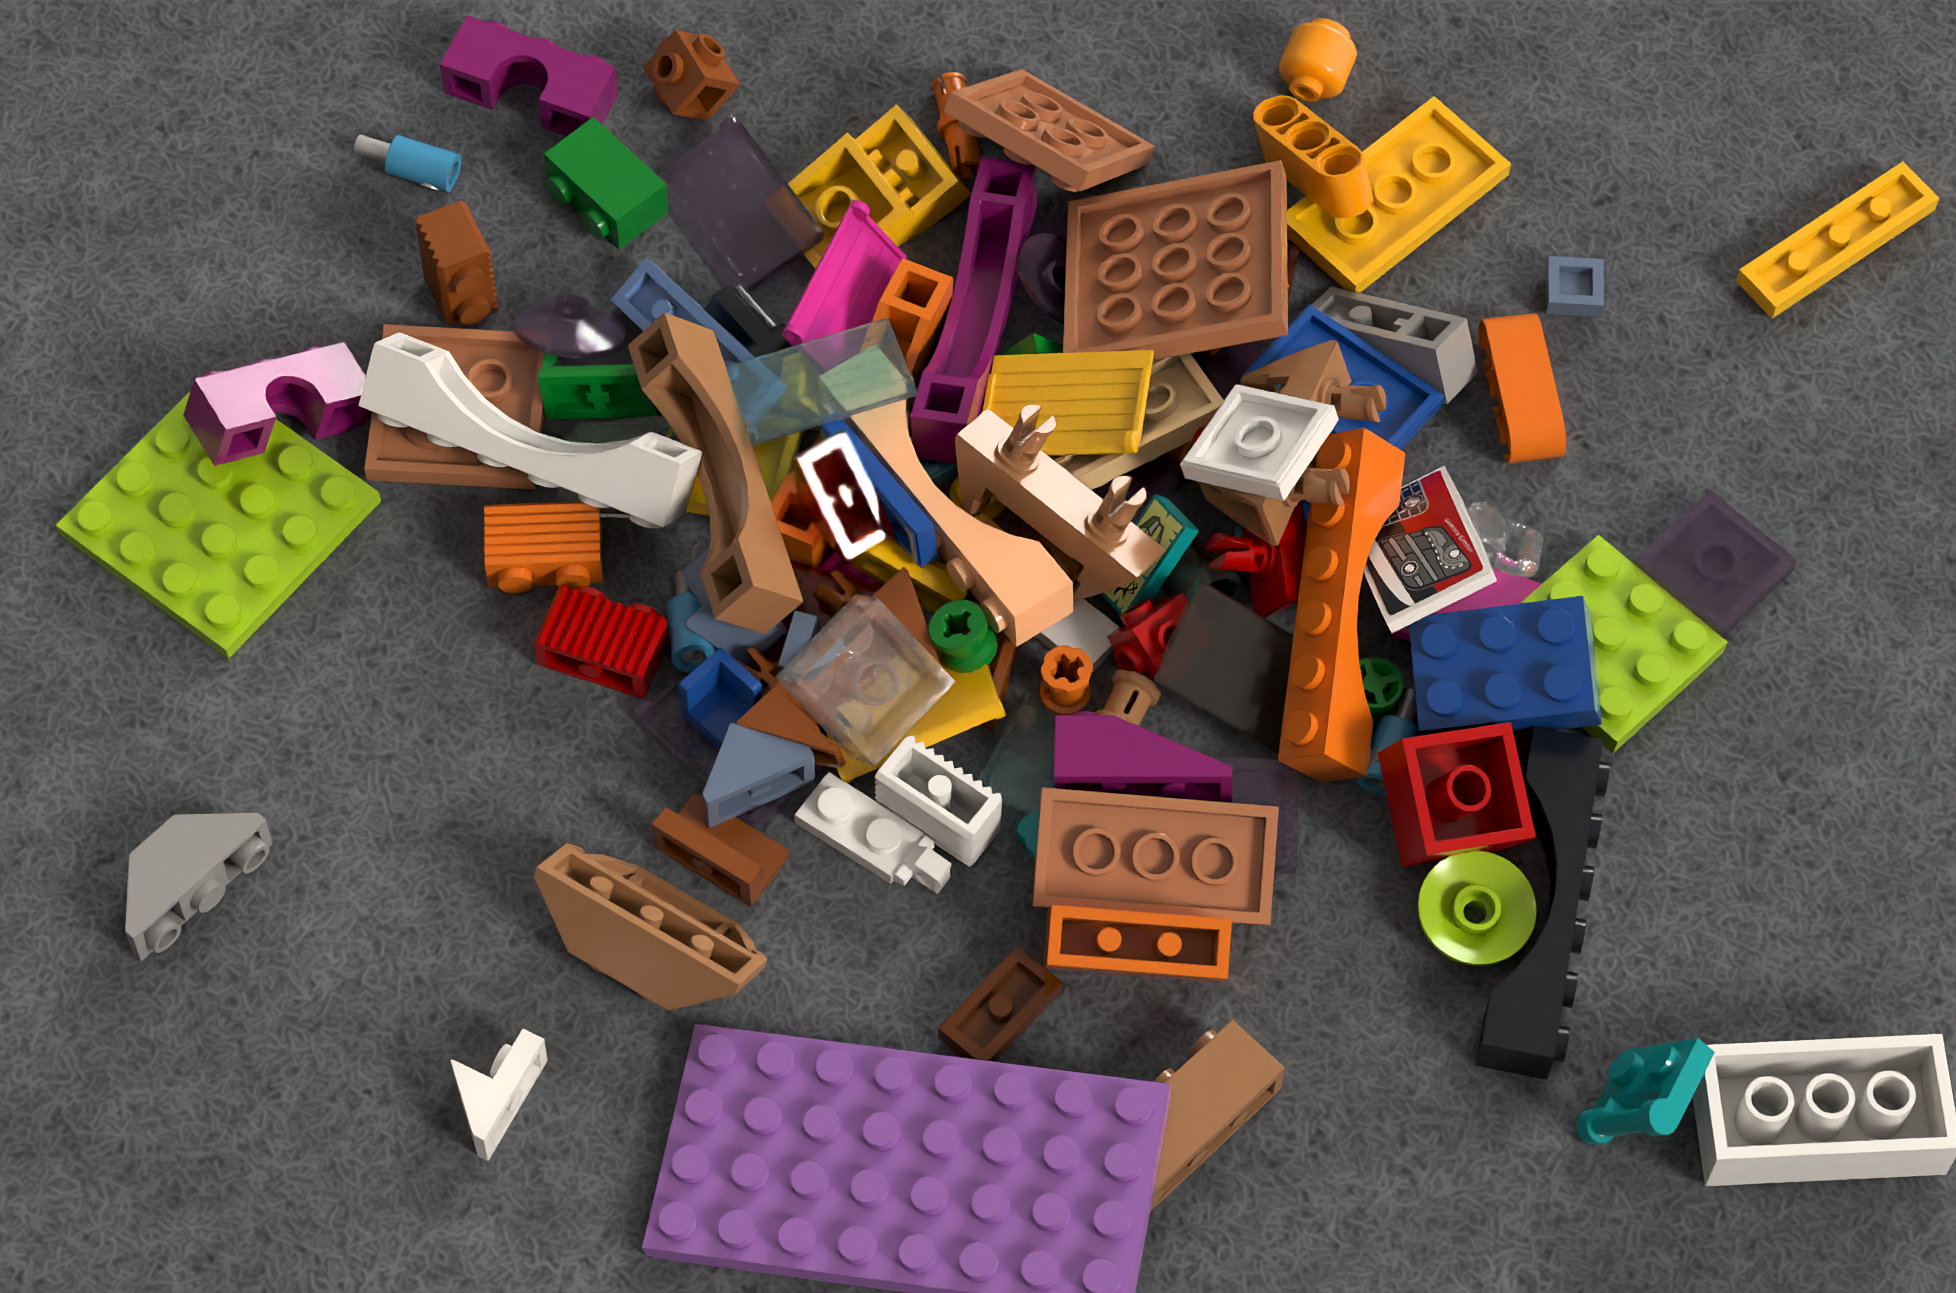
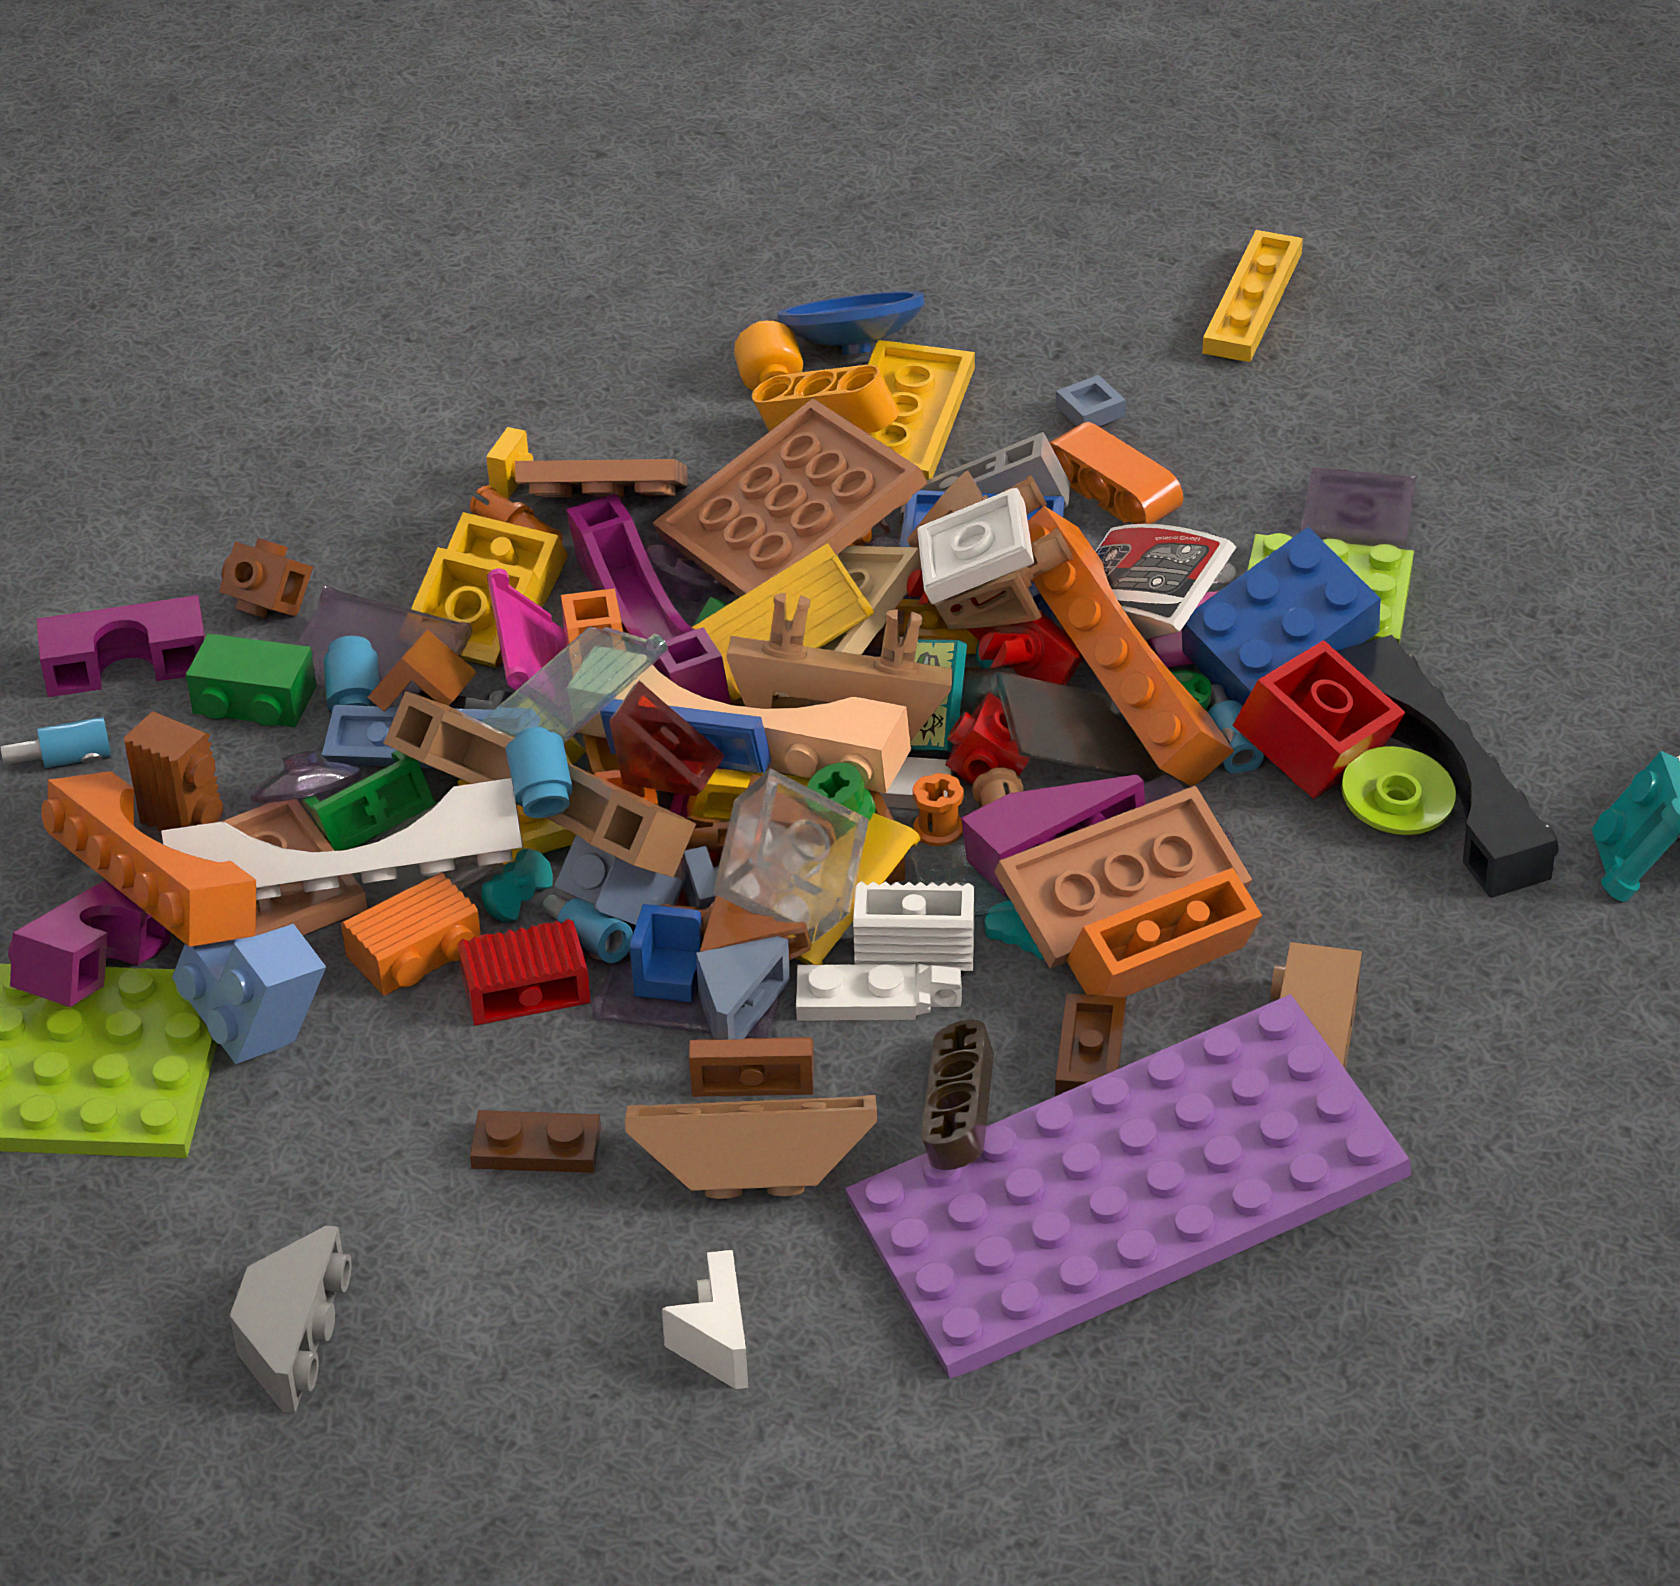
camera: 30 degrees left, 20 degrees down
(357, 431) = (185, 893): none -> orange arch
(361, 529) = (251, 989): none -> medium blue brick
(496, 817) = (535, 1141): none -> reddish brown plate
(649, 546) = (515, 884): none -> teal piece
(686, 233) = (350, 672): none -> dark azure brick
(710, 469) = (539, 772): none -> dark azure brick
(734, 277) = (430, 667): none -> dark orange panel
(832, 989) = (957, 1095): none -> dark brown beam
(997, 53) = (501, 460): none -> yellow plate
(1428, 51) = (852, 319): none -> blue dish

